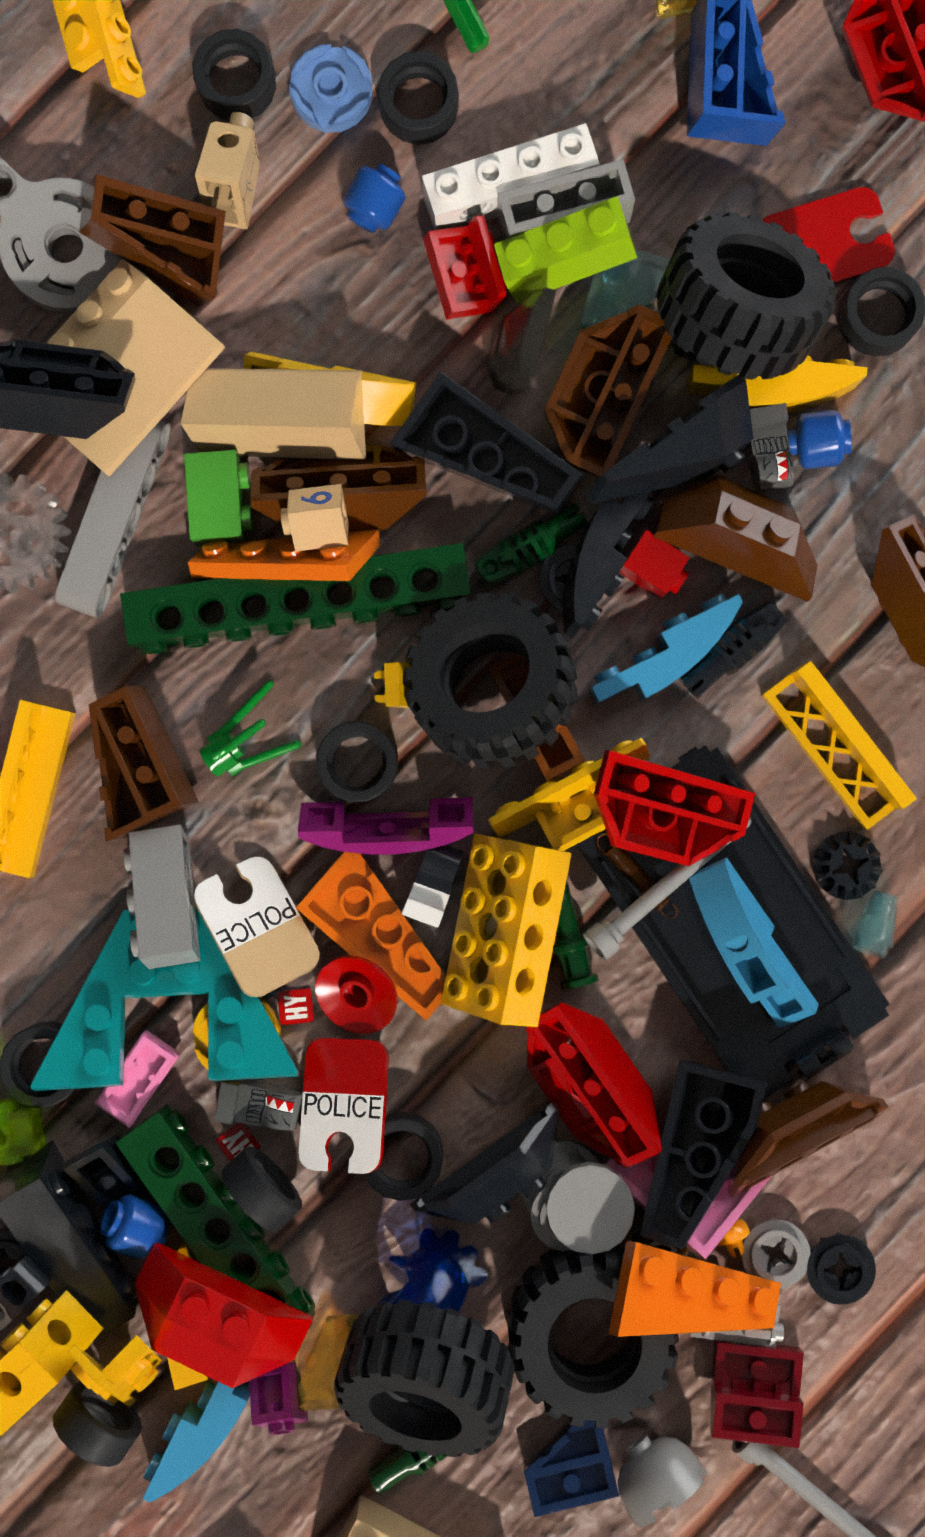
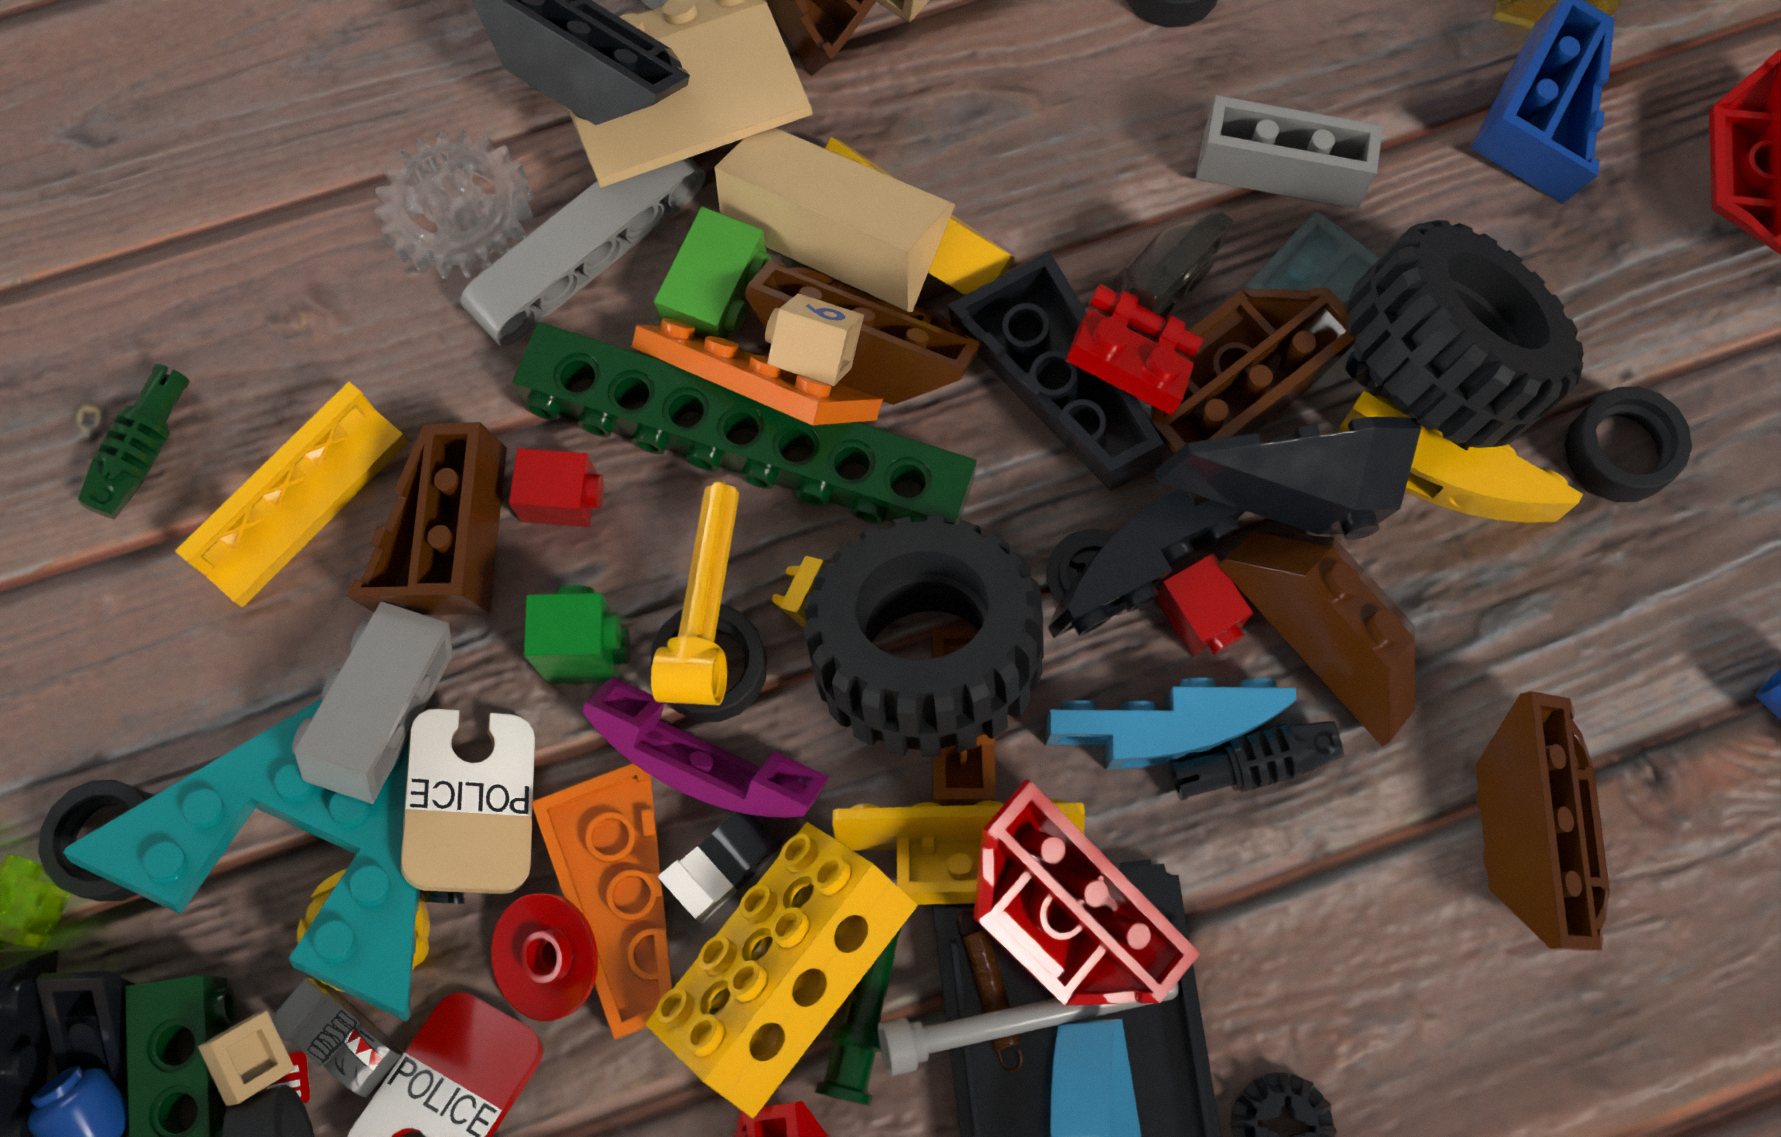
camera: 25 degrees right, 15 degrees down
(143, 1073) = (210, 923): bright pink plate -> none
(194, 698) = (555, 487): none -> red brick
(216, 1146) = (246, 1058): none -> tan tile
(224, 752) = (558, 562): green plant -> none
(266, 791) = (574, 636): none -> green brick
(295, 1006) = (461, 936): red sticker -> none
(353, 775) = (692, 665): none -> yellow axle
(374, 198) = (1069, 48): blue head -> none
(466, 269) = (1138, 168): red bracket -> none
(473, 186) = (1177, 87): white brick -> none
(528, 546) = (1055, 508): dark green hinge -> none
(532, 427) = (1127, 358): none -> red plate
(566, 249) = (1271, 193): lime brick -> none
(769, 450) = (1414, 535): dark grey leg -> none
(820, 439) = (1485, 555): blue head -> none
(826, 229) = (1603, 322): red piece -> none
(851, 736) = (1364, 950): yellow fence -> none

